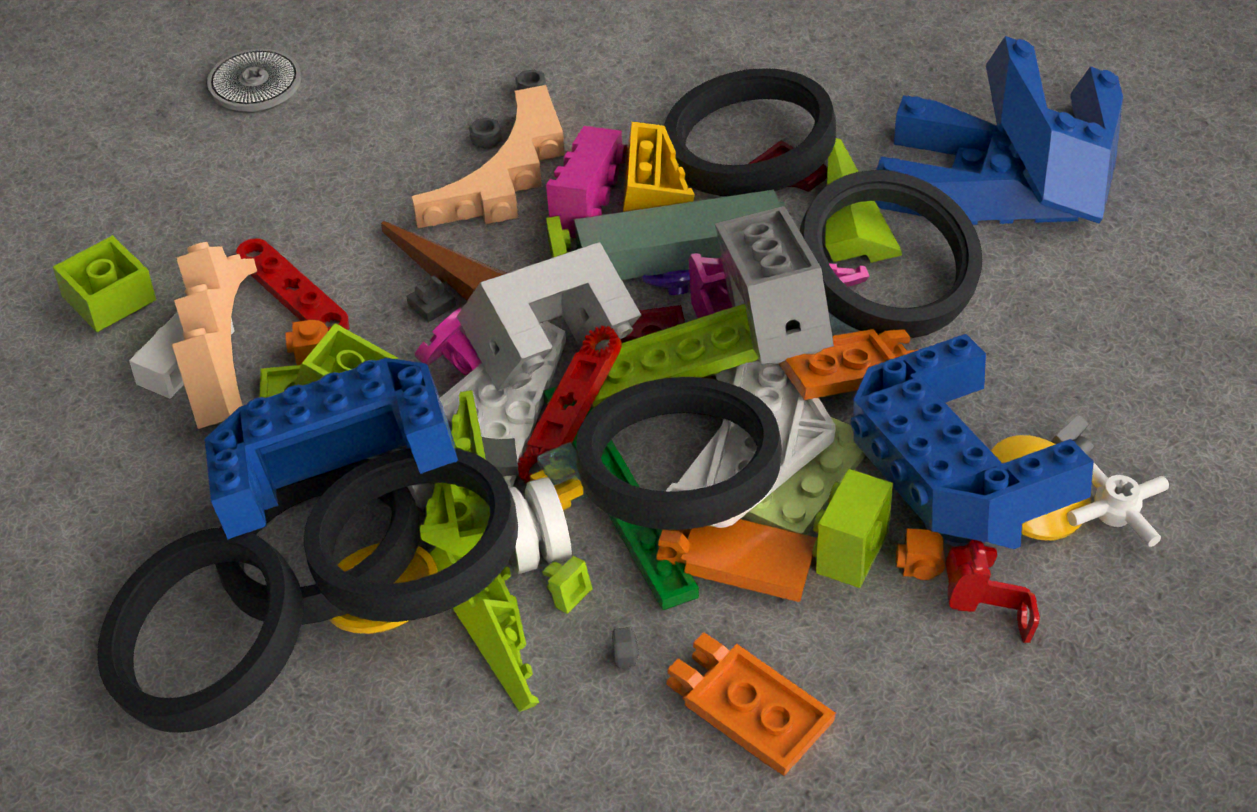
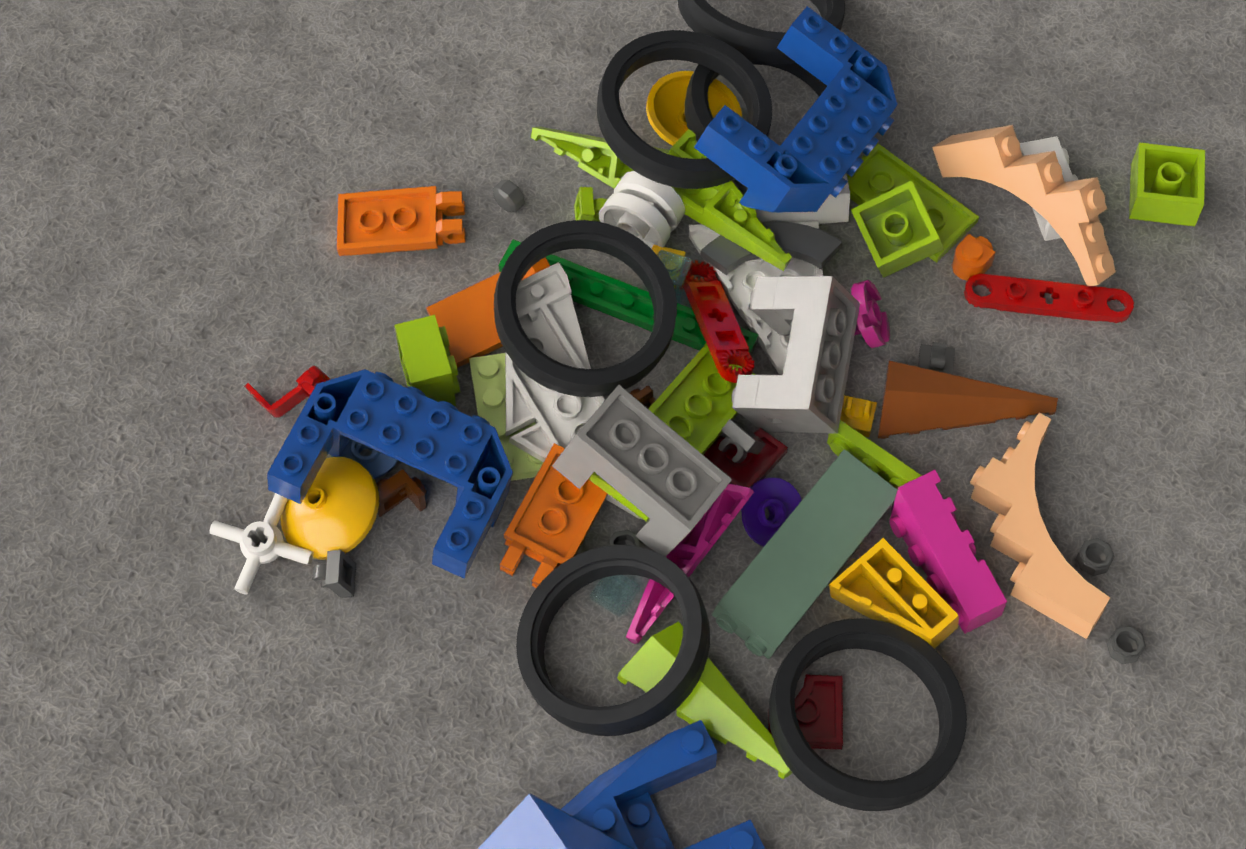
camera: 135 degrees right, 15 degrees up
(651, 318) = (743, 438): none -> dark grey tile

